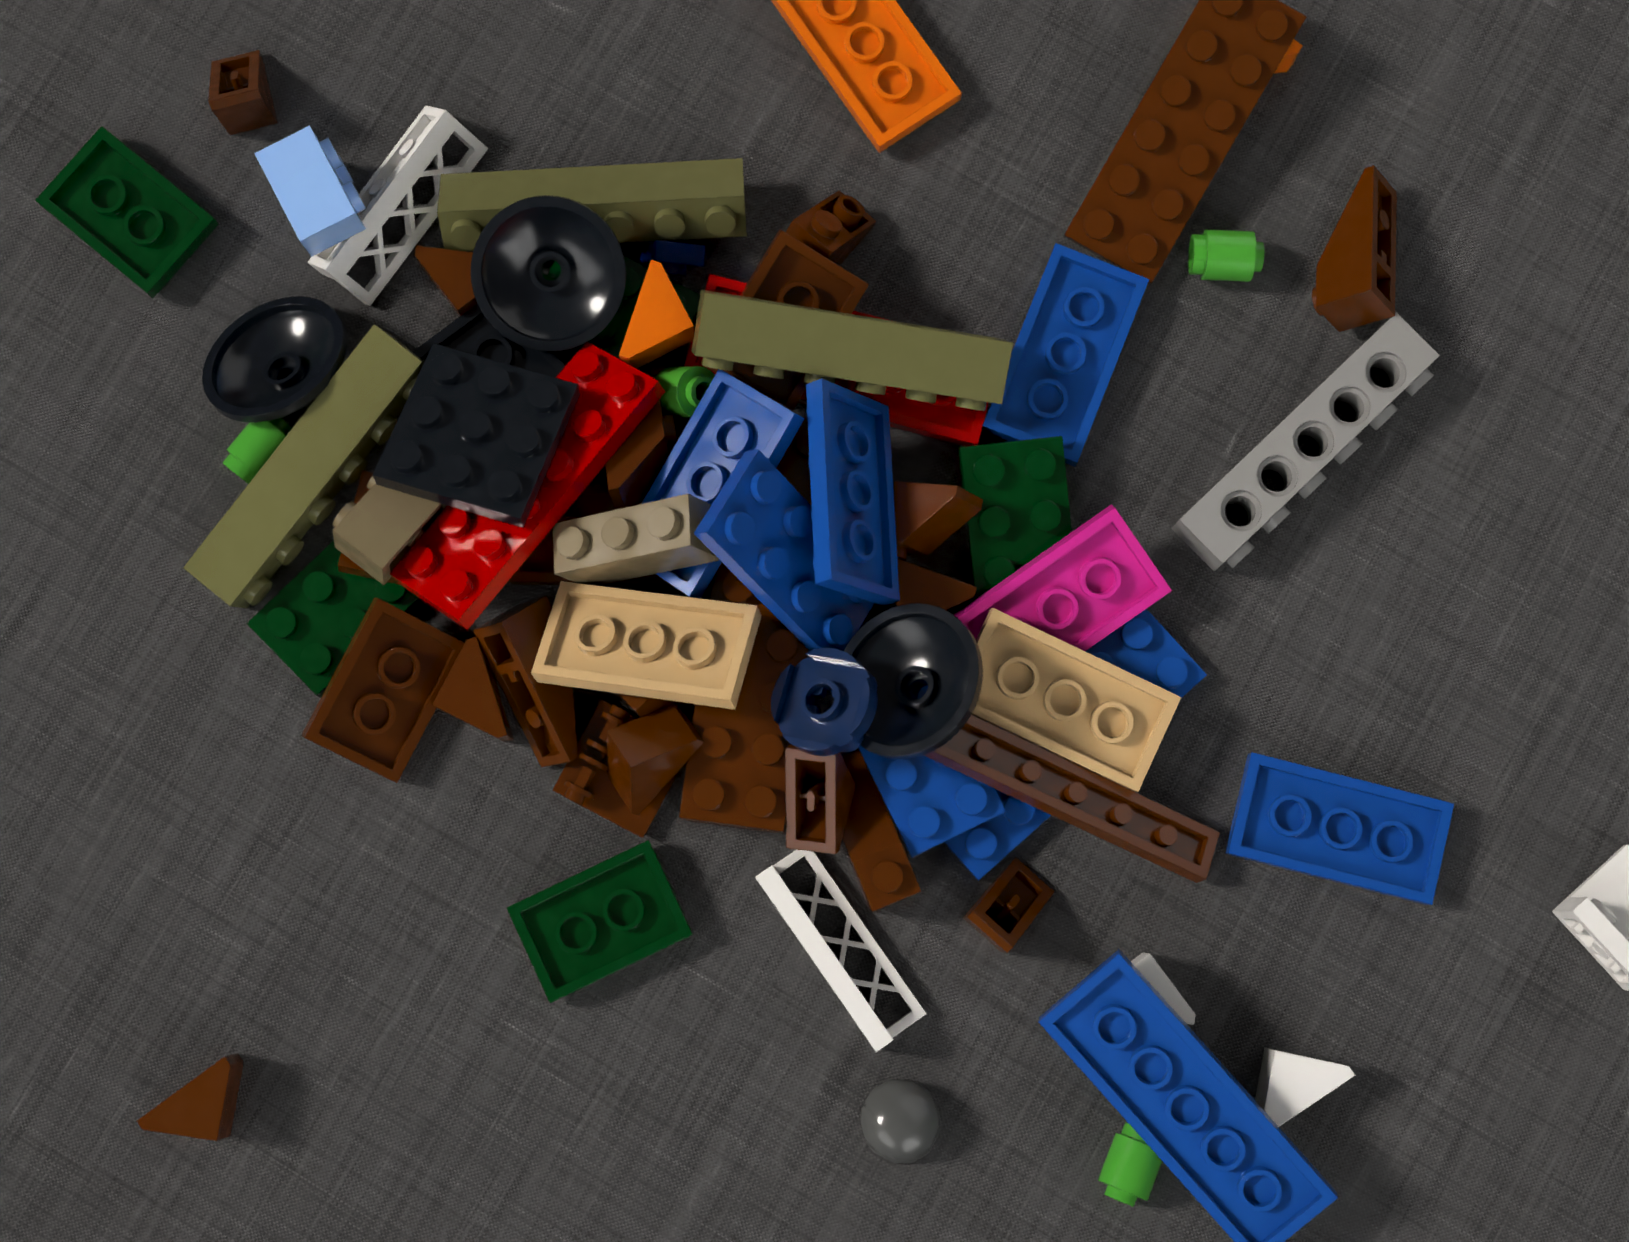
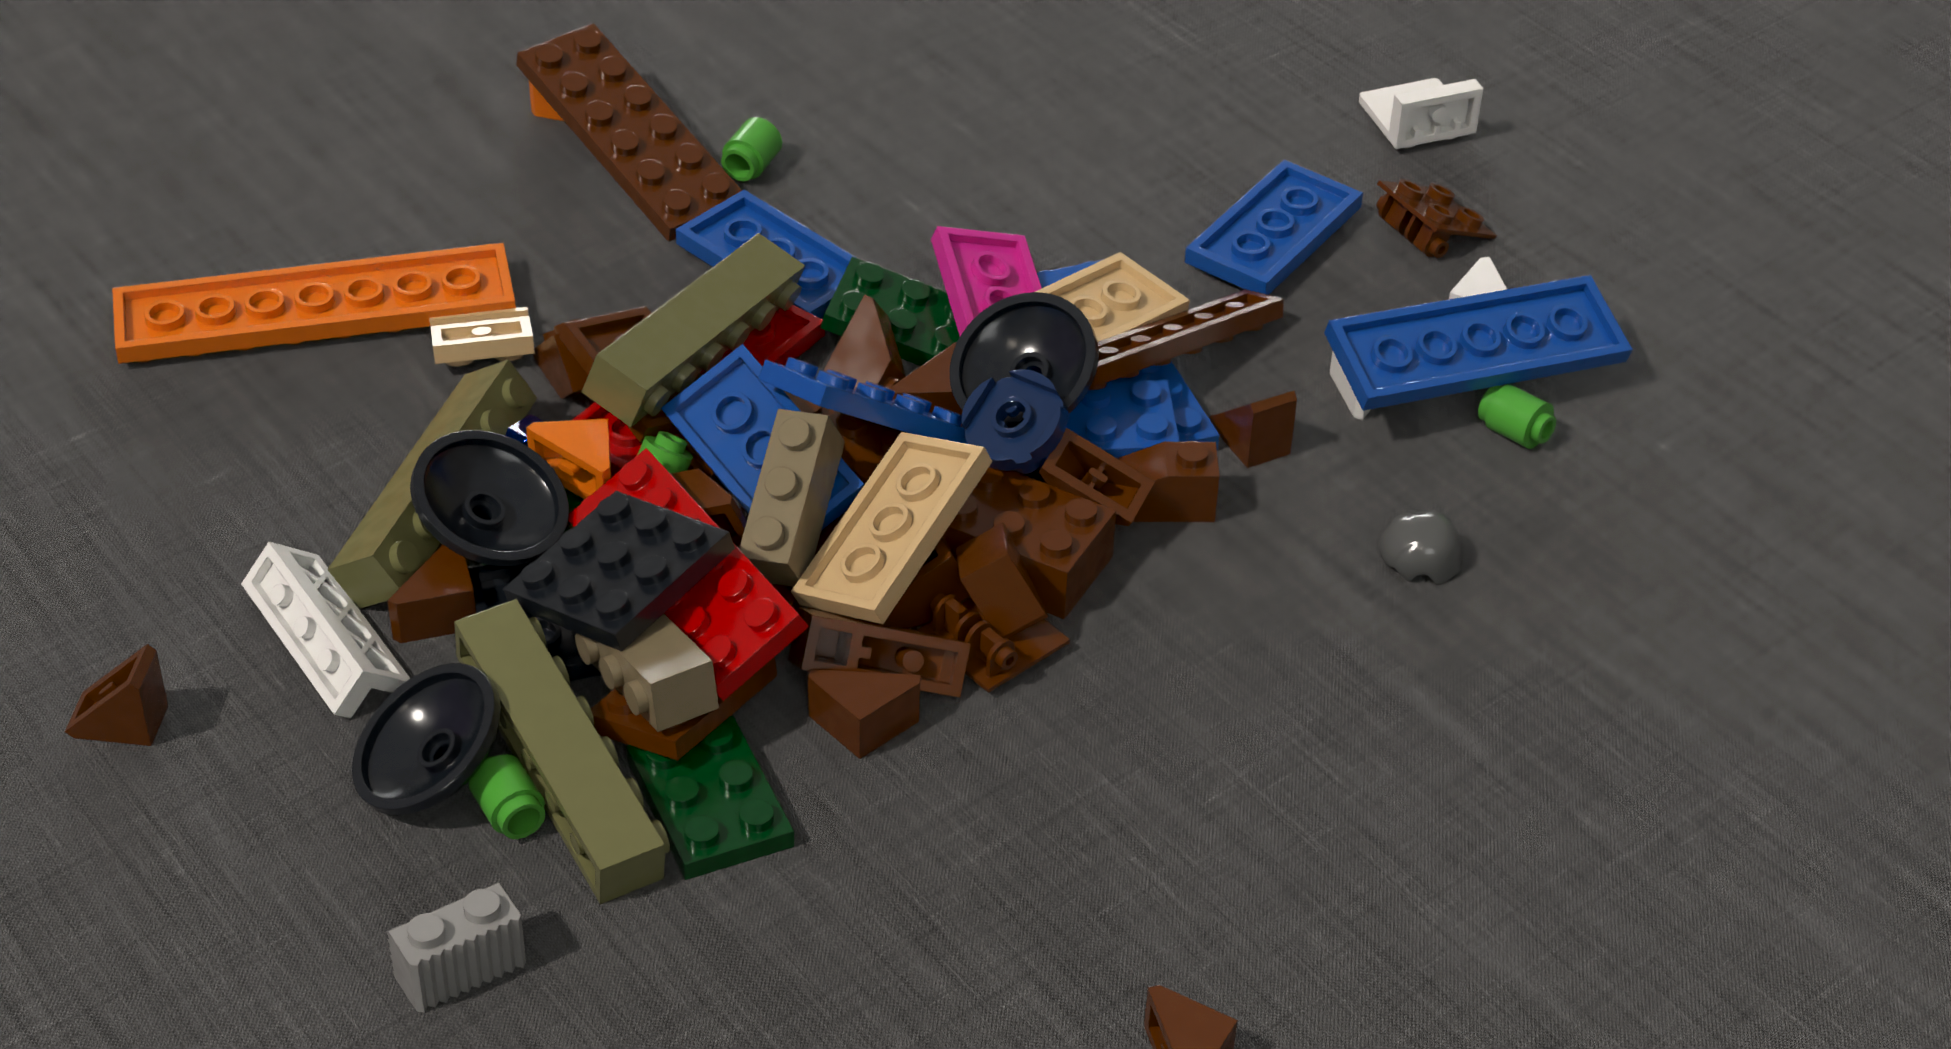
camera: 70 degrees left, 40 degrees down
(84, 490) = (457, 947): none -> light grey brick
(127, 212) = (175, 833): dark green plate -> none
(313, 189) = (272, 644): light blue brick -> none
(383, 690) = (821, 764): reddish brown plate -> none
(599, 921) = (1138, 689): dark green plate -> none
(824, 958) = (1241, 544): white fence -> none
(826, 139) = (482, 335): none -> tan plate
(852, 493) = (860, 359): blue plate -> none
(1360, 258) = (819, 80): reddish brown slope -> none
(1392, 348) = (937, 148): light grey brick -> none
(1440, 988) = (1428, 215): none -> reddish brown hinge

